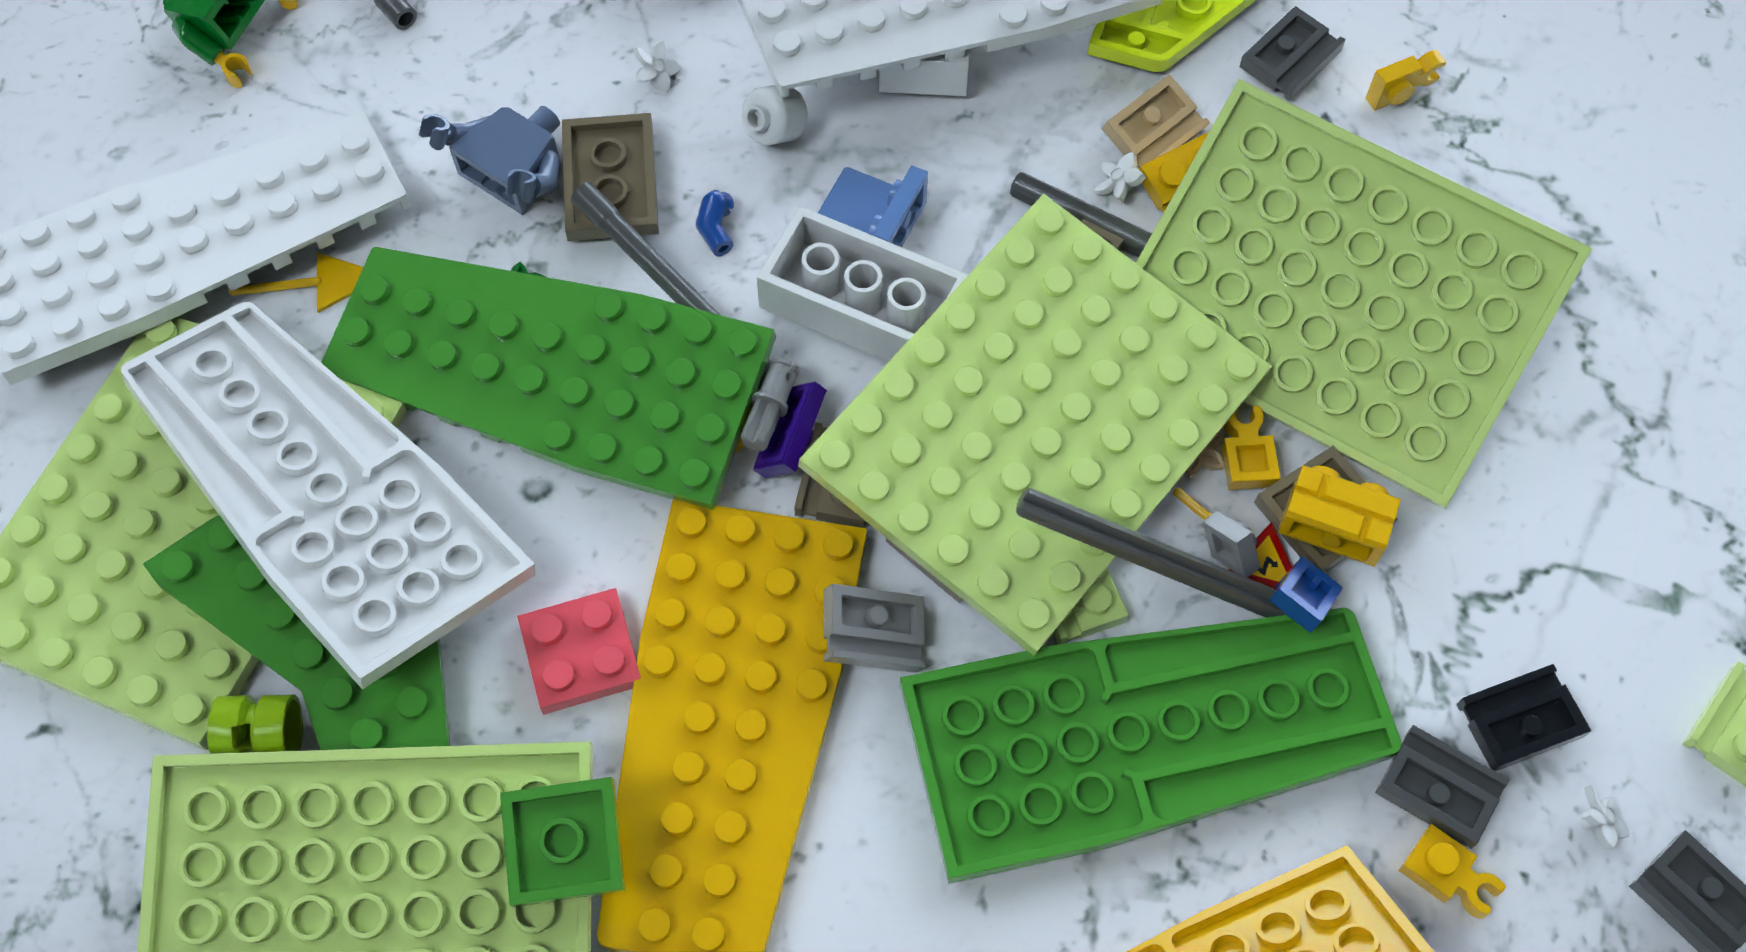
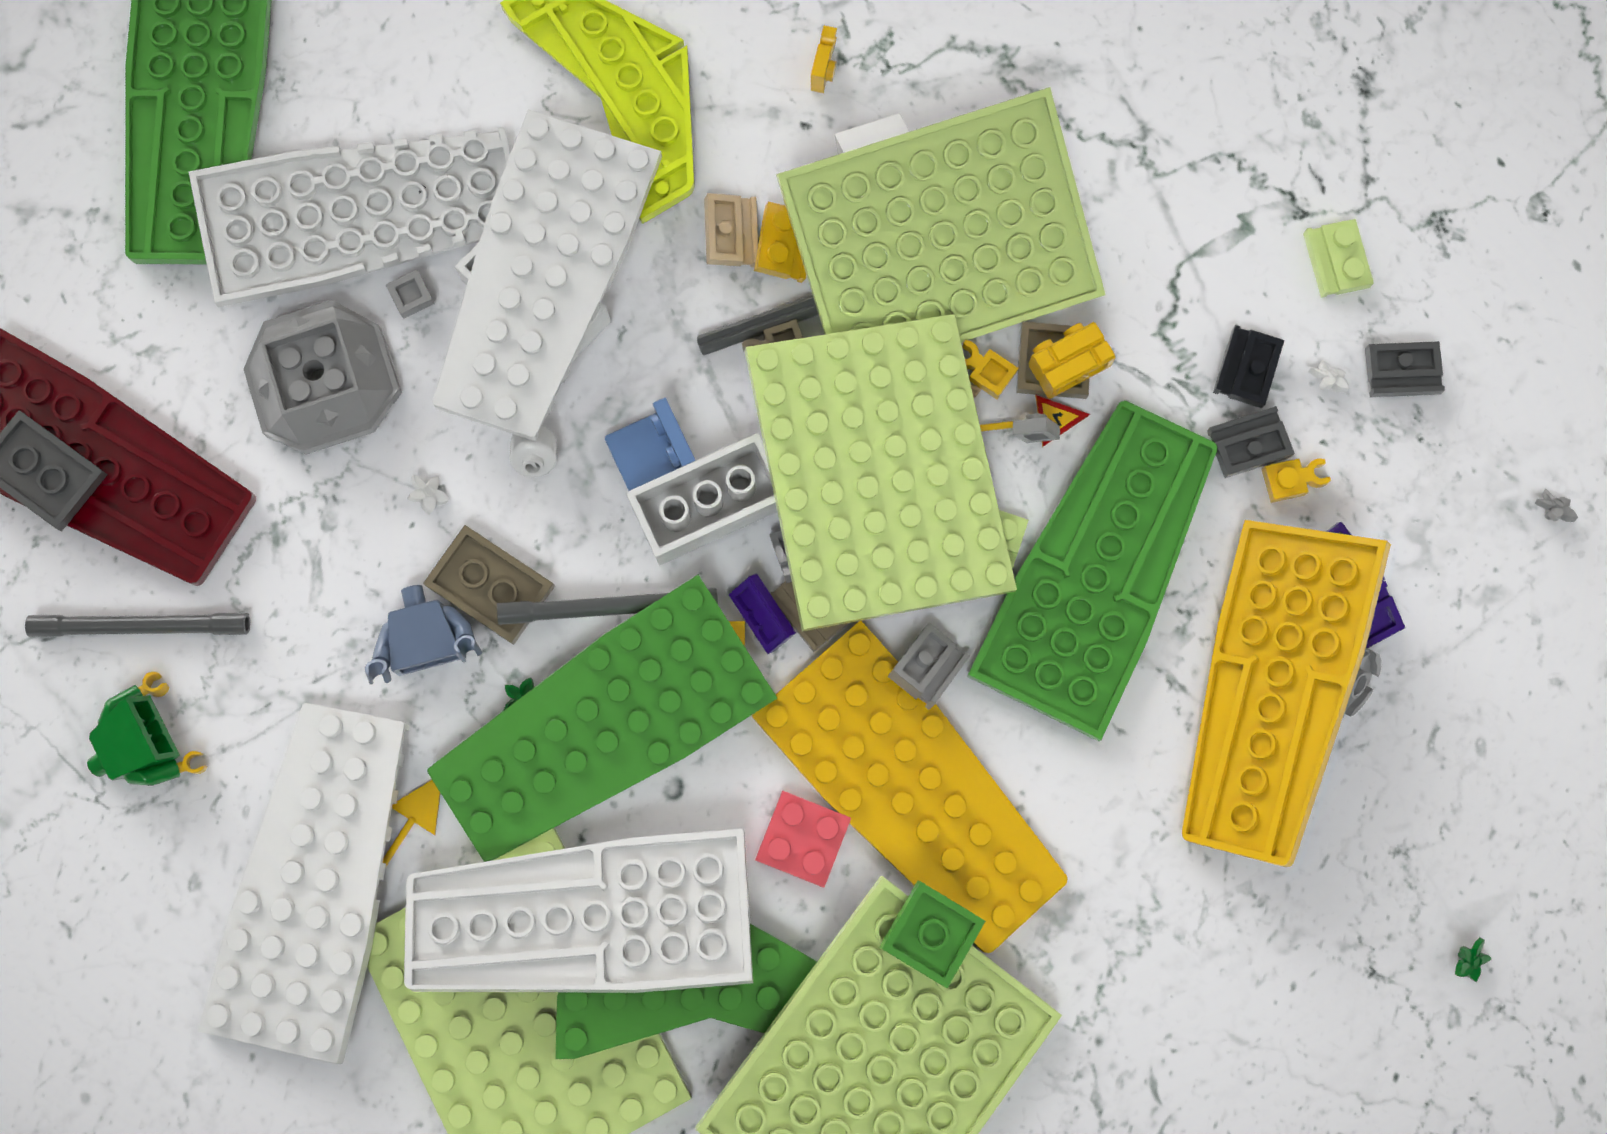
camera: 50 degrees left, 15 degrees up
(245, 726) = (710, 1061): lime wheel -> none
(708, 223) = (571, 546): blue arm -> none
(769, 404) = (740, 613): light grey axle -> none
(1120, 177) = (749, 282): white plant -> none
(1146, 552) = (1014, 481): dark grey axle -> none
(1291, 53) = (748, 105): dark grey plate -> none
(1306, 594) = (1099, 418): blue bracket -> none

